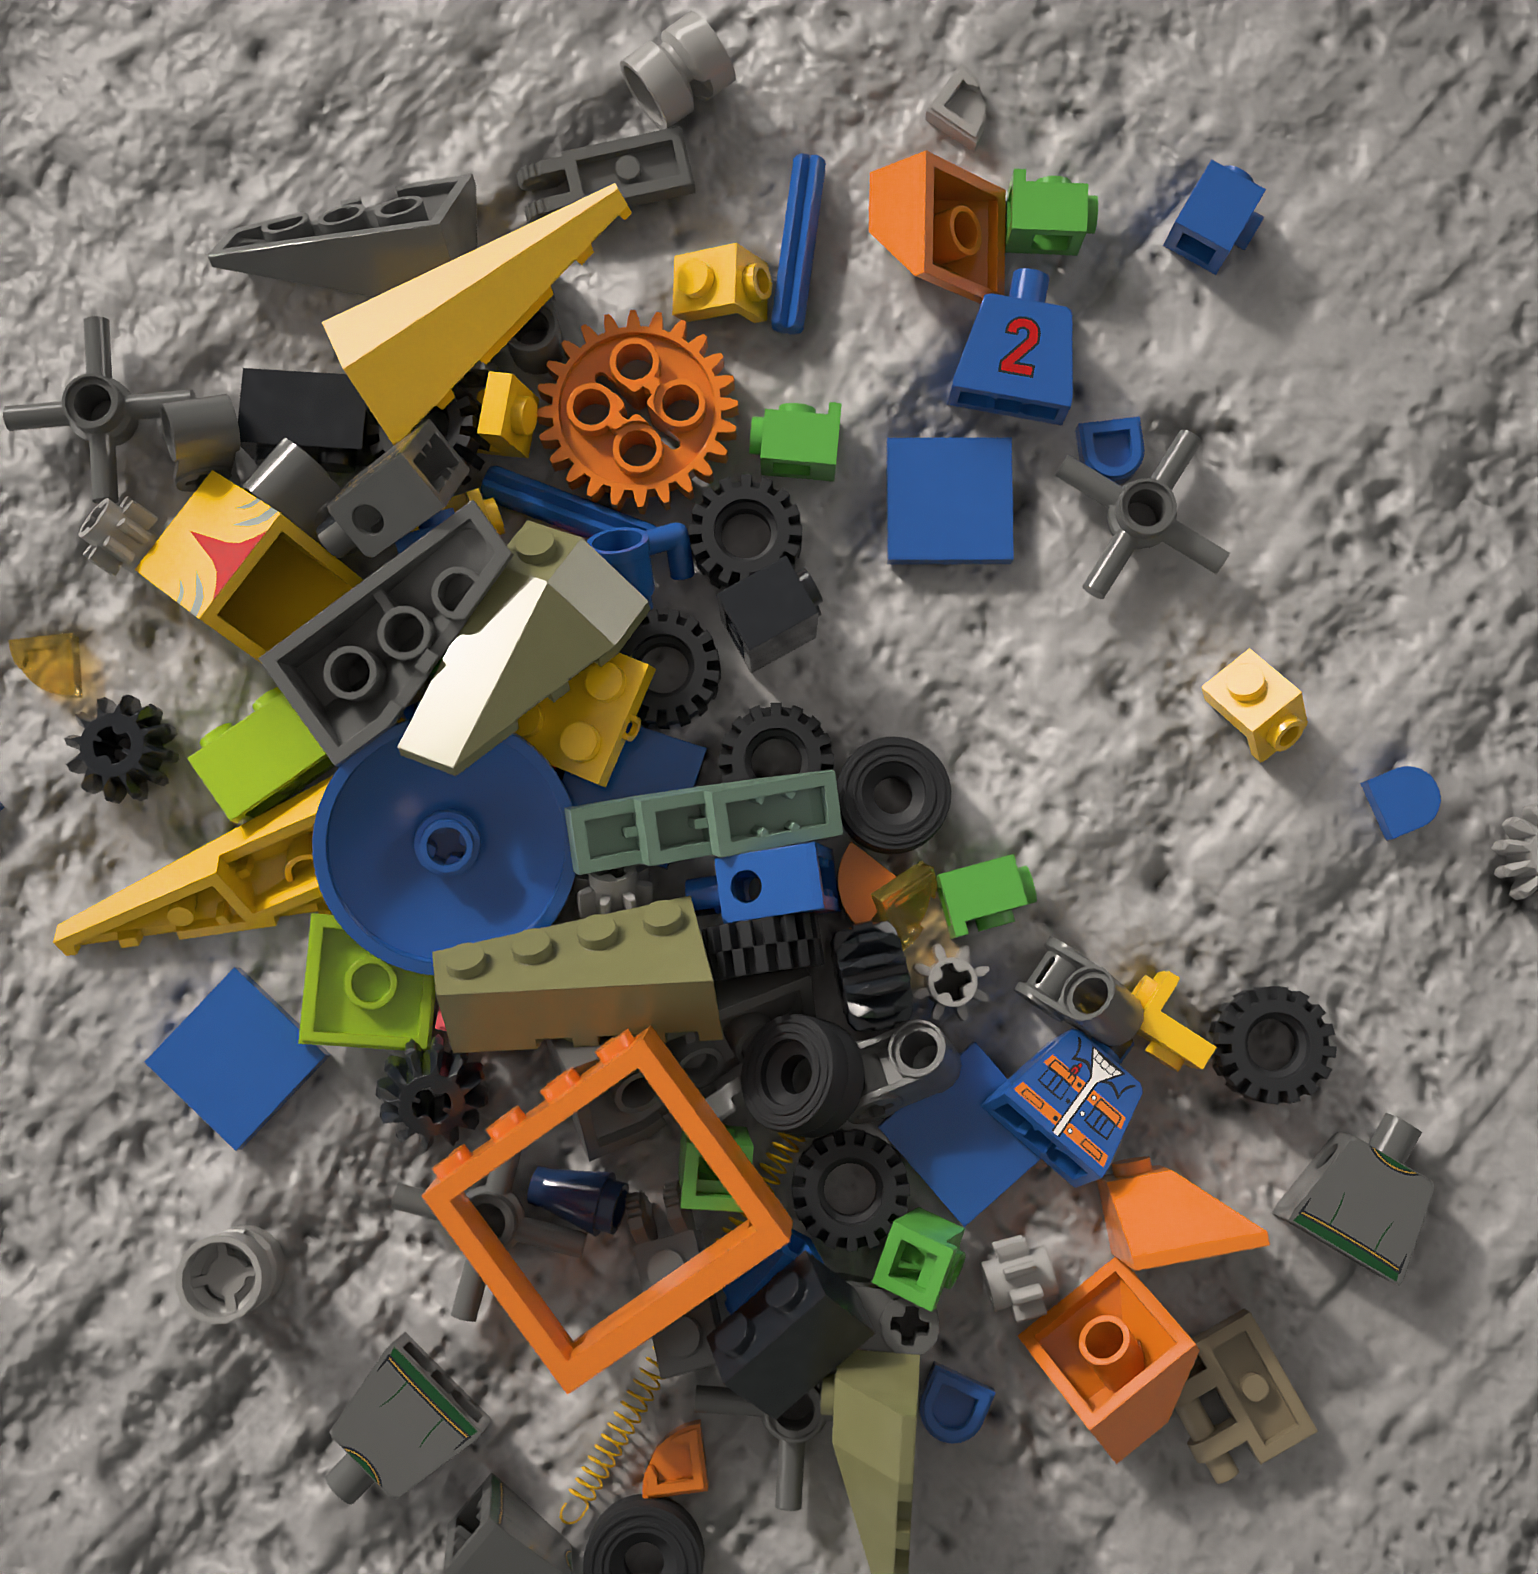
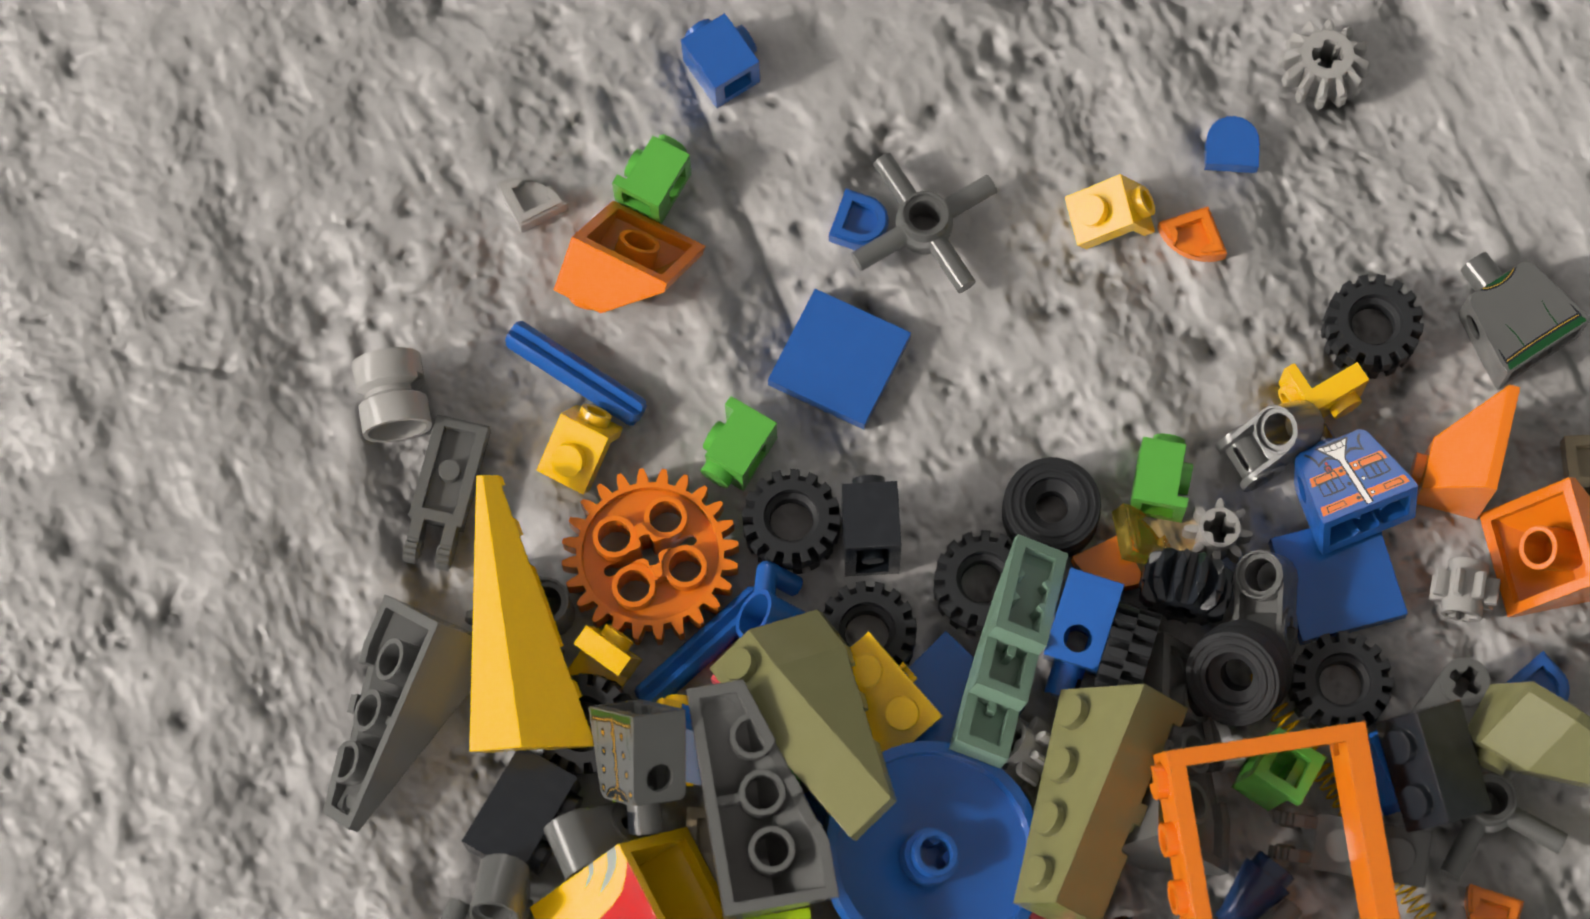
camera: 65 degrees left, 10 degrees down
(921, 1258) = (1418, 650): bright green brick -> none
(1018, 355) = (753, 252): blue torso -> none
(1278, 806) = (1194, 236): none -> orange tile

